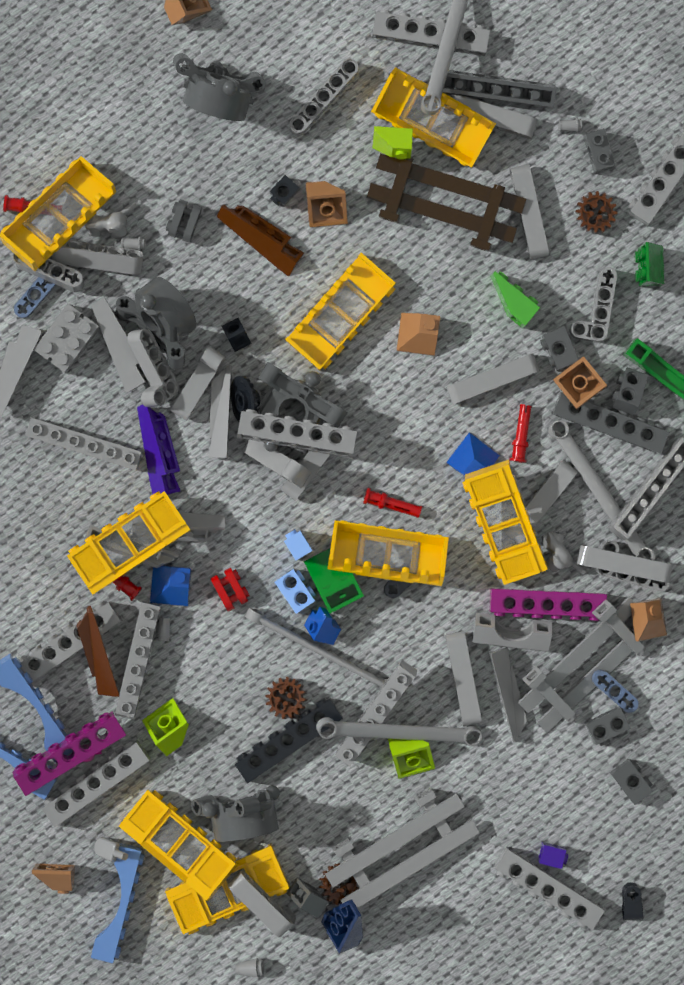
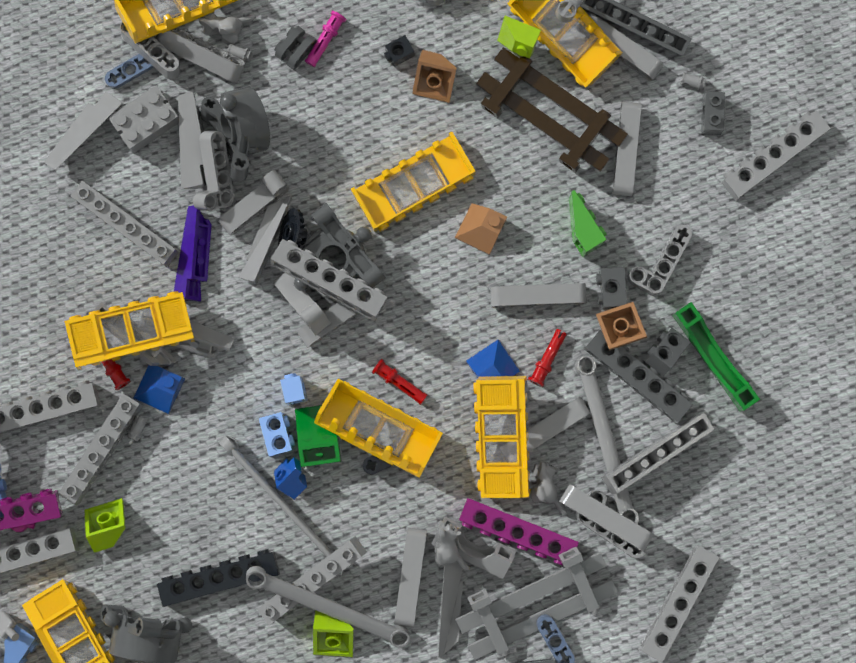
camera: 20 degrees right, 5 degrees down
(96, 655) = (62, 428): reddish brown wedge -> none
(213, 193) = (329, 31): none -> dark pink pin
(236, 334) = (306, 169): black brick -> none
(240, 592) = (220, 401): red brick -> none
(262, 236) = (364, 87): reddish brown wedge -> none
(283, 688) = (231, 525): reddish brown gear -> none
(488, 641) = (446, 548): none -> light grey animal
(600, 223) = (691, 181): reddish brown gear -> none
(648, 619) = (612, 581): medium nougat slope -> none
(650, 265) = (727, 236): green slope -> none

